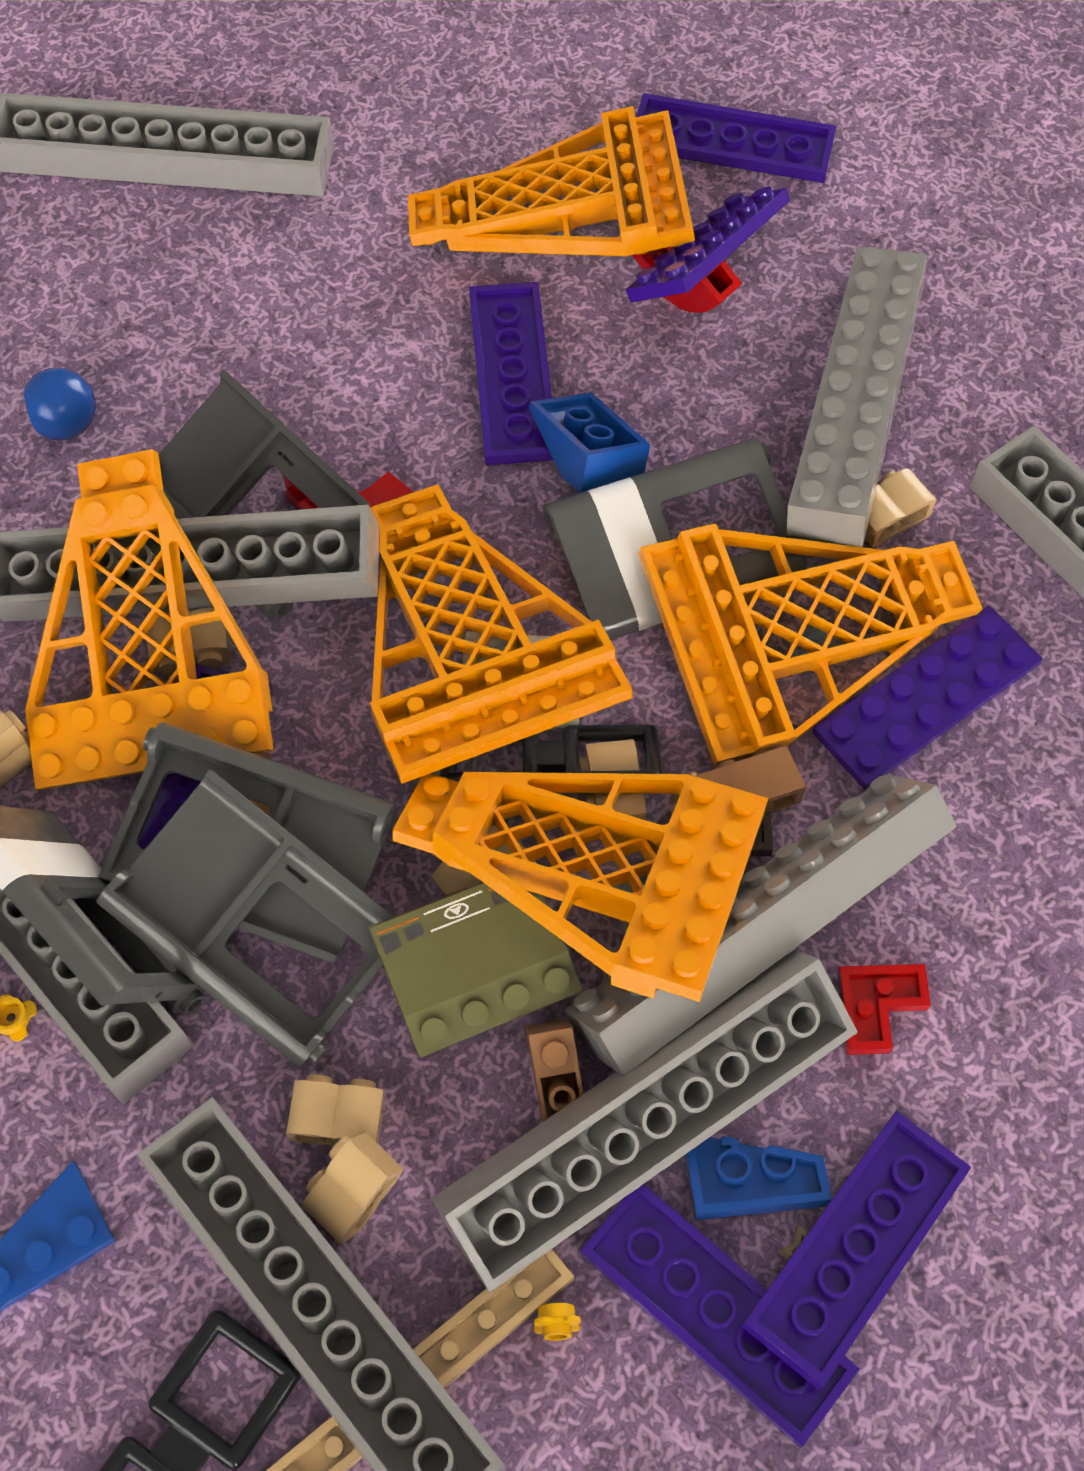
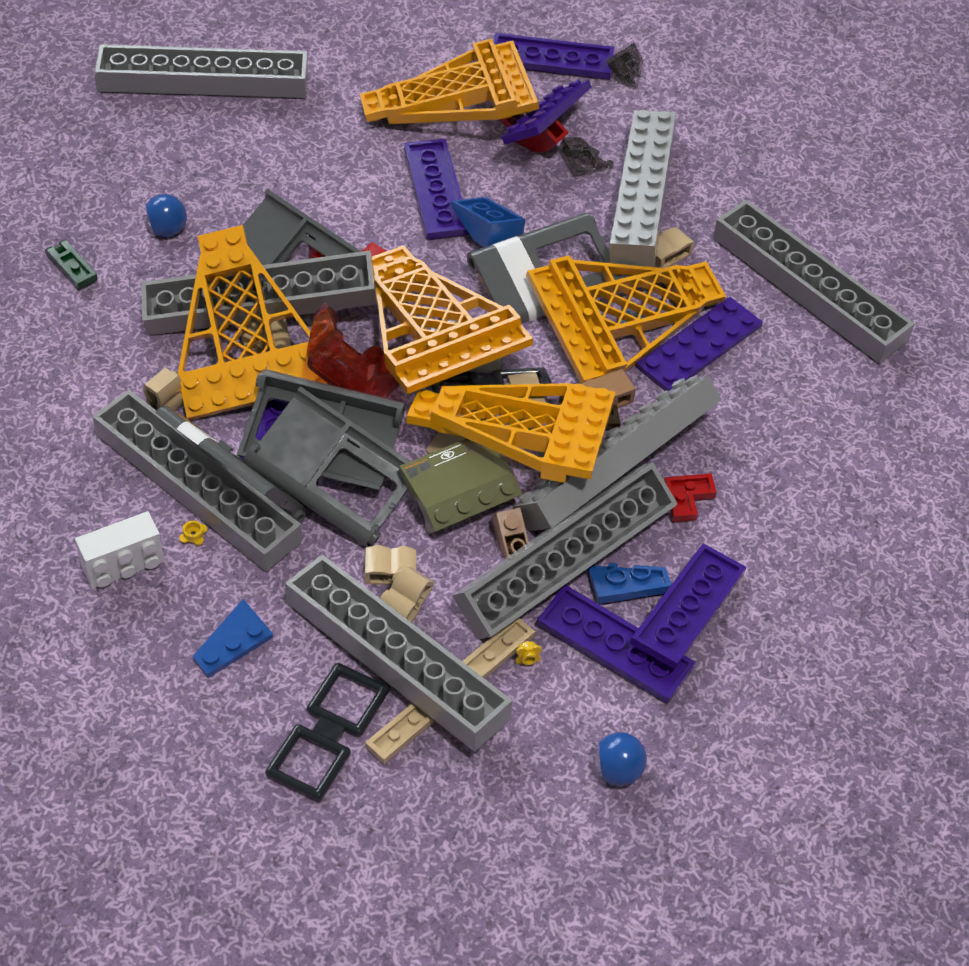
camera: 10 degrees left, 10 degrees down
(304, 711) = (343, 365): none -> clear red windscreen
(756, 314) = (576, 152): none -> clear smoke slope
(854, 159) = (626, 65): none -> clear smoke slope

